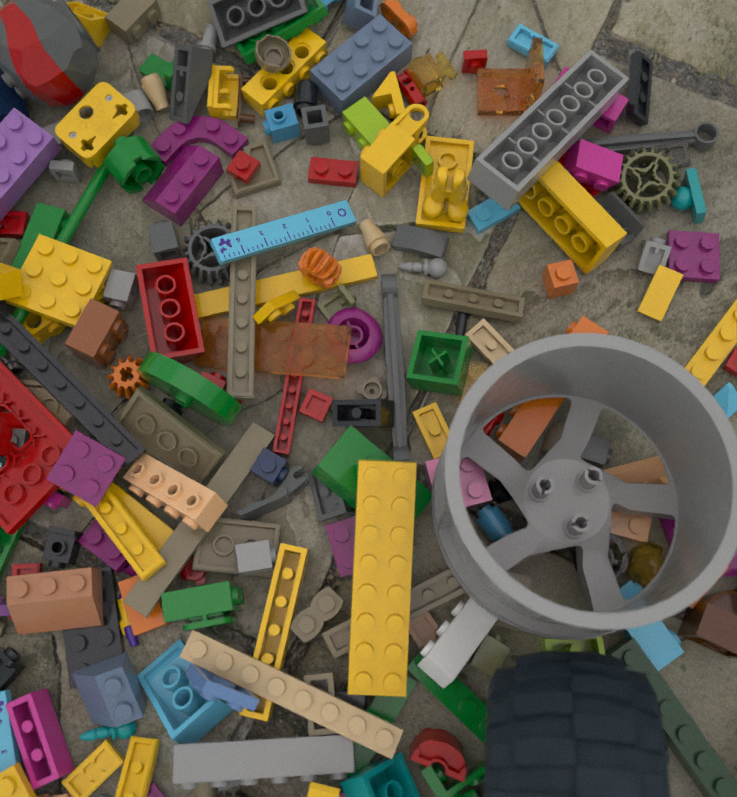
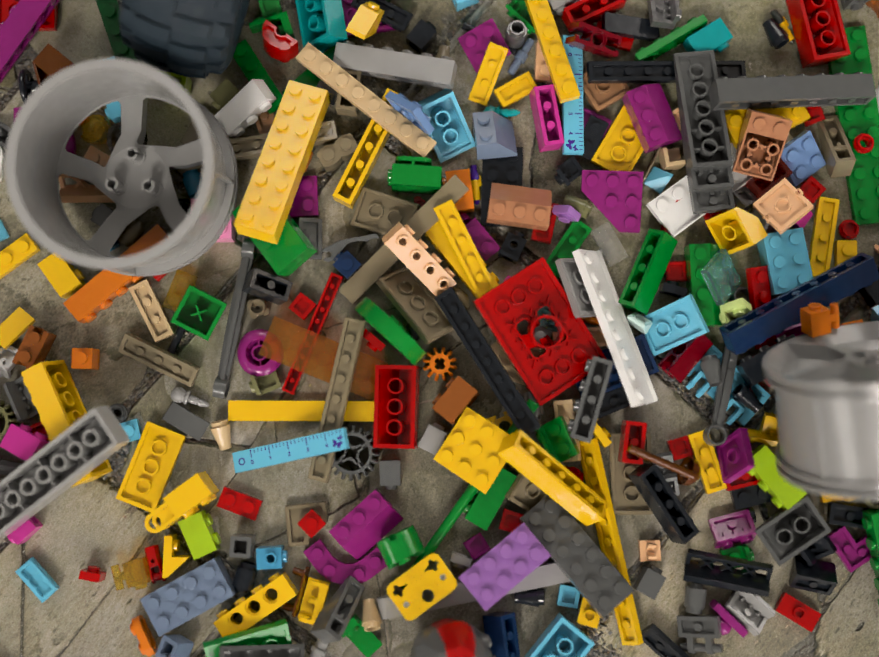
camera: 170 degrees left, 10 degrees up
(51, 191) = (476, 546): none -> magenta tile
(86, 468) = (476, 287): magenta plate -> none
(254, 558) = (372, 199): light grey brick -> none
(272, 53) = (260, 615): dark tan hair -> none
(276, 307) = (312, 387): yellow plate -> none
(319, 267) = (270, 411): orange gear -> none
(422, 160) = (162, 485): lime tile -> none
(432, 428) = (219, 264): yellow plate -> none
(449, 187) = (151, 447): yellow piece -> none
(505, 225) = (124, 412): none -> dark grey plate
(521, 85) = (57, 535): clear orange bracket -> none
(624, 276) = (34, 347): none -> dark orange brick

